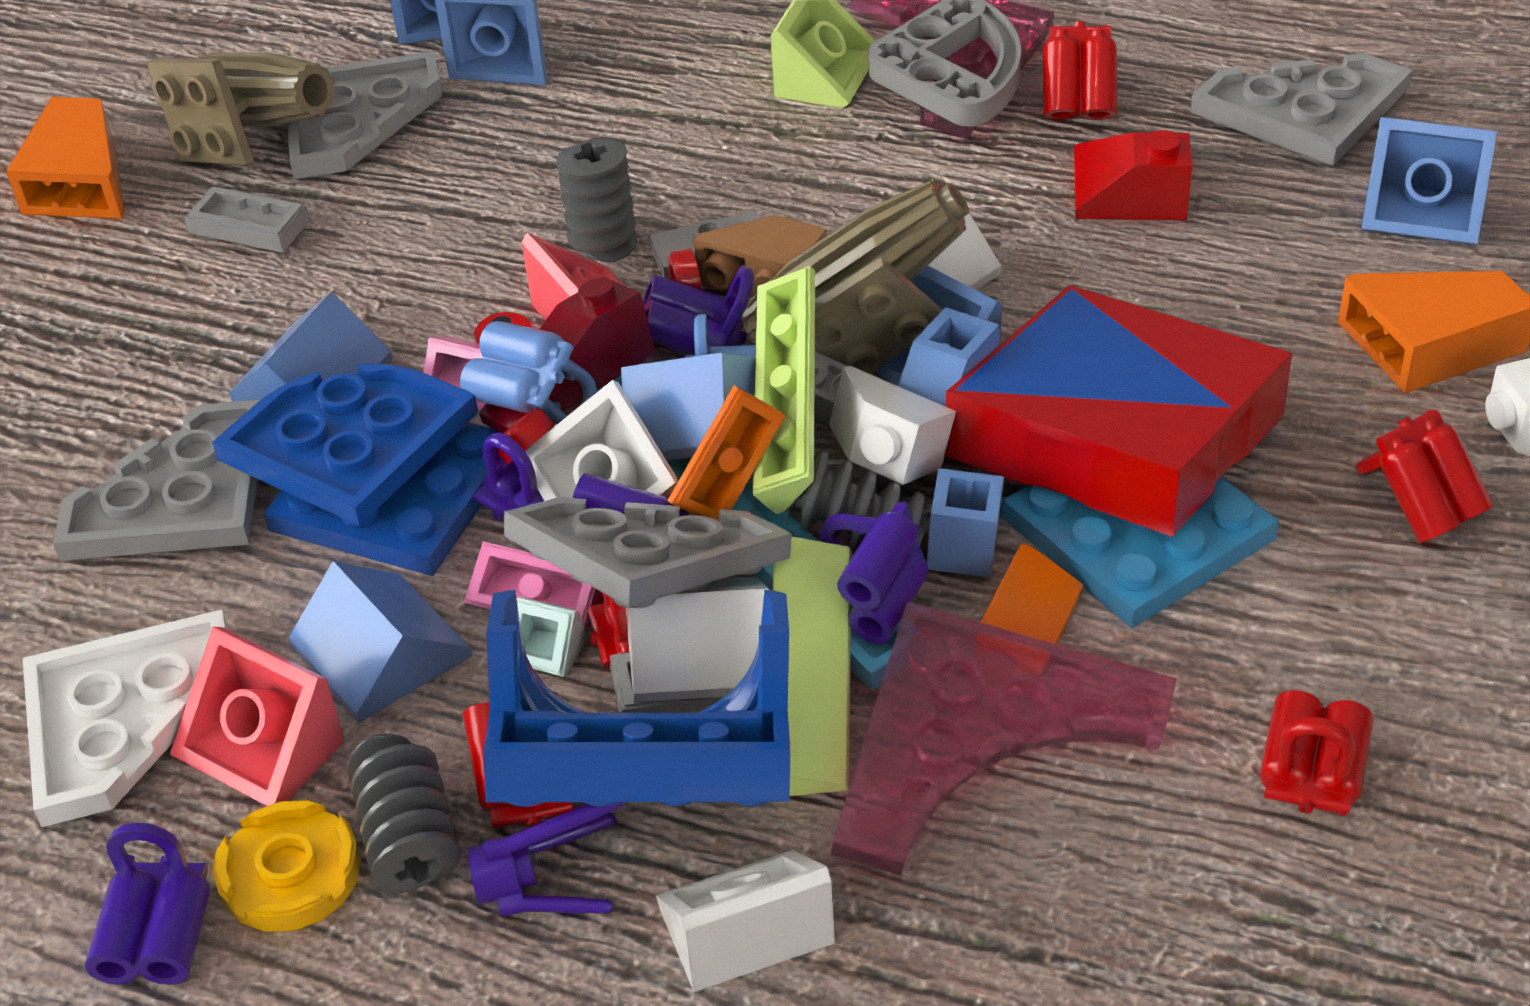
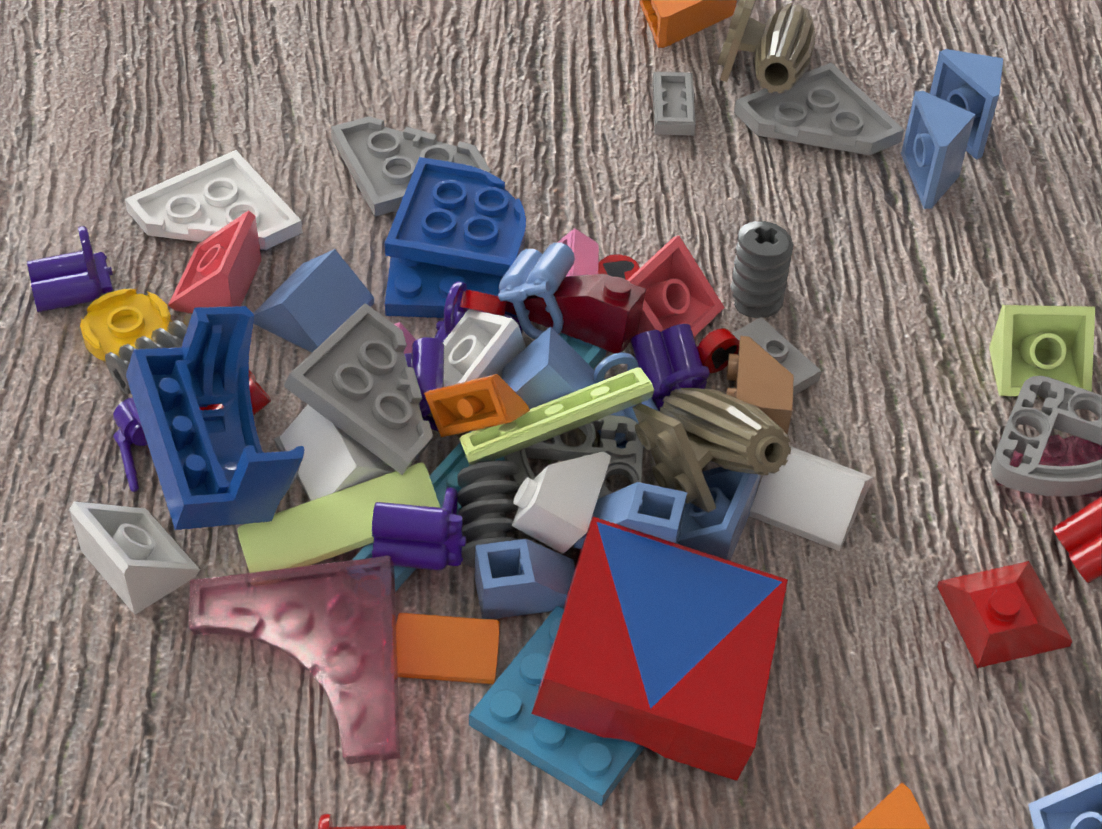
camera: 65 degrees right, 5 degrees up
(321, 340) = (547, 188): medium blue slope -> none

